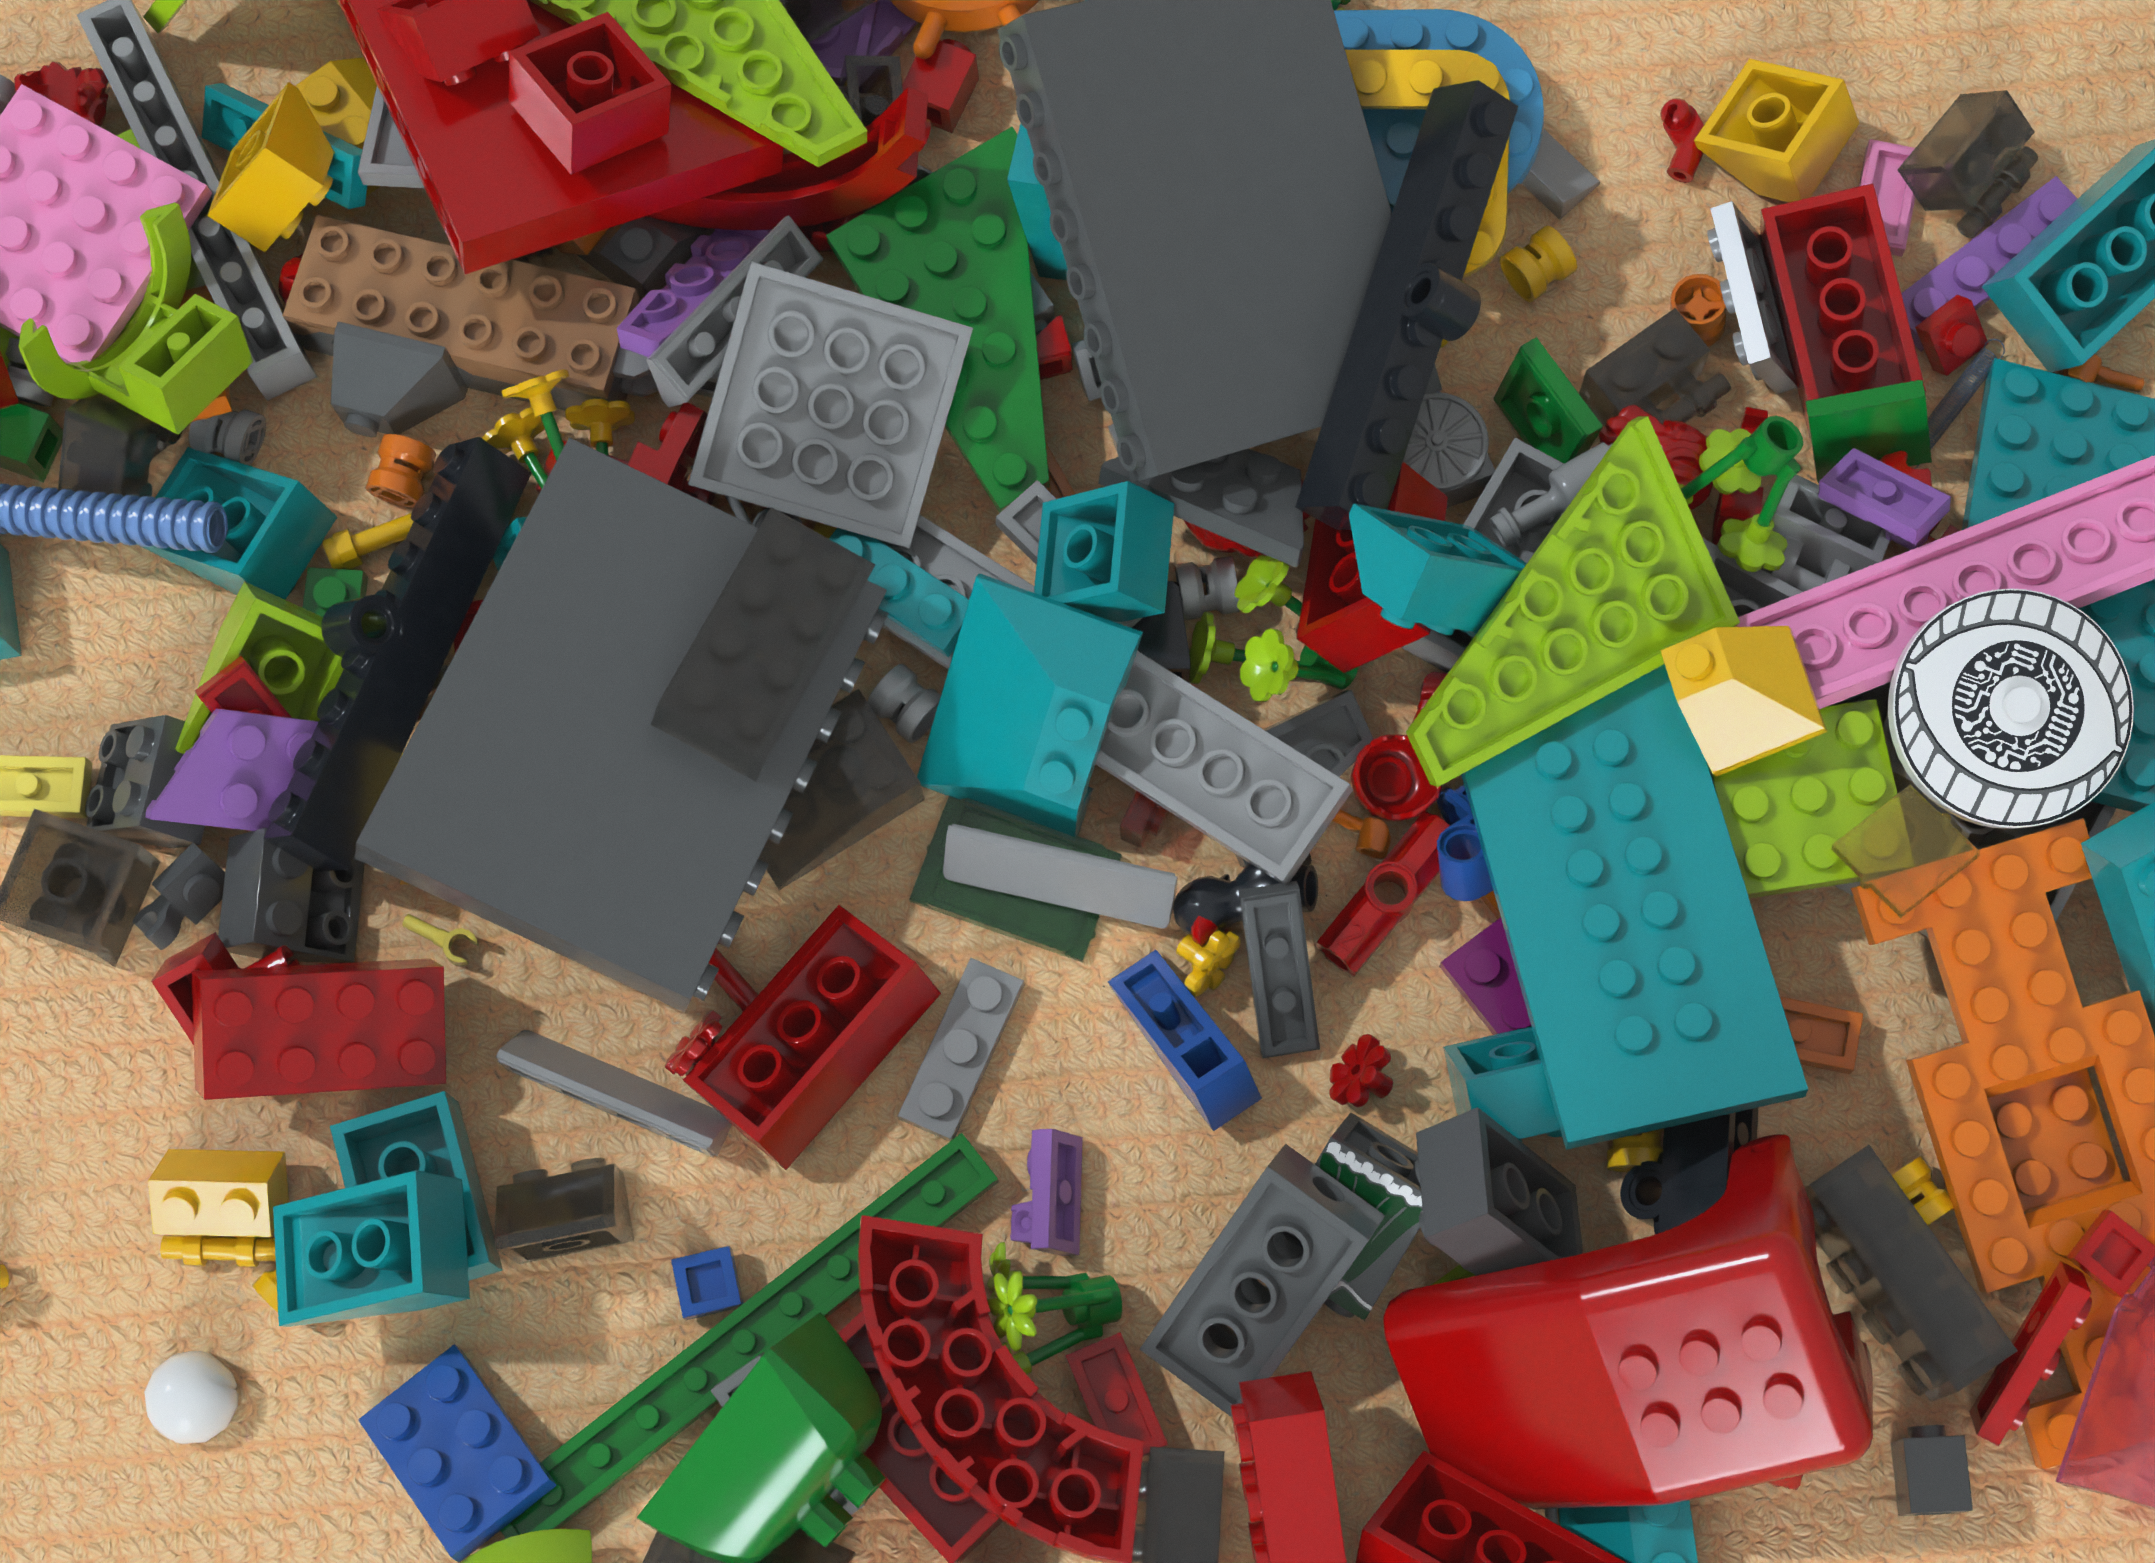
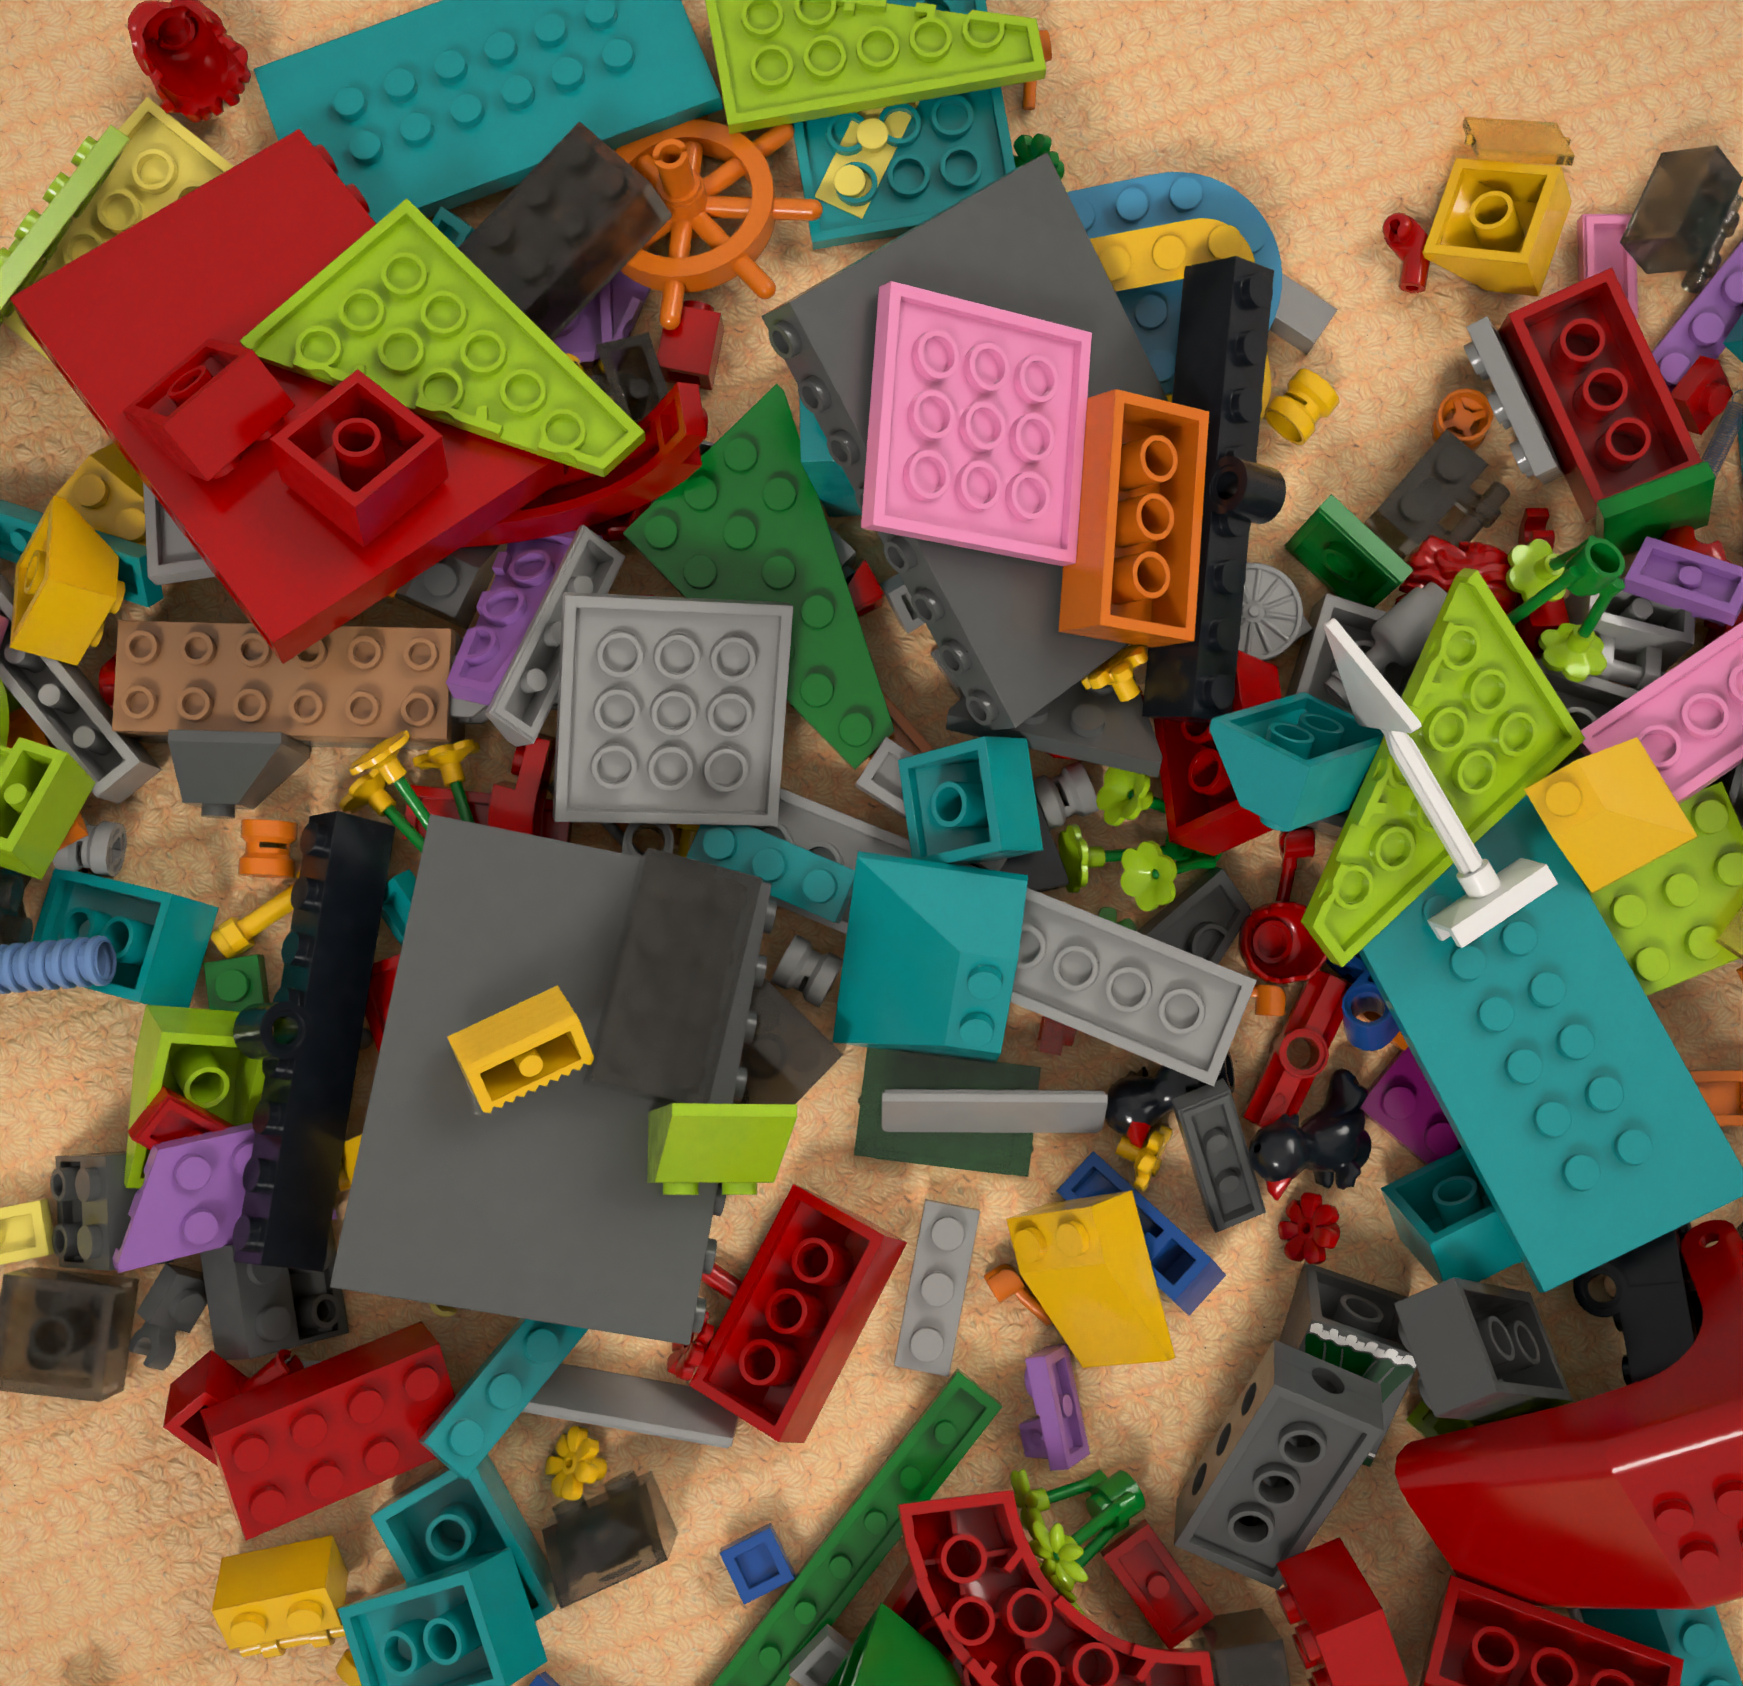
camera: 20 degrees left, 10 degrees up
(503, 1025) = (498, 1393): none -> teal plate
(548, 1138) = (574, 1464): none -> yellow plant
(599, 662) = (521, 1048): none -> yellow brick
(767, 793) = (717, 1145): none -> lime slope
(1034, 1059) = (1006, 1282): none -> orange hand
(1121, 1062) = (1094, 1278): none -> yellow slope
(1181, 177) = (975, 426): none -> bright pink plate
(1279, 459) = (1118, 673): none -> yellow plant
(1321, 306) = (1138, 522): none -> orange brick
(1393, 985) = (1322, 1143): none -> black animal
(1521, 533) = (1488, 895): none -> white piece
(1814, 54) = (1518, 141): none -> clear yellow piece

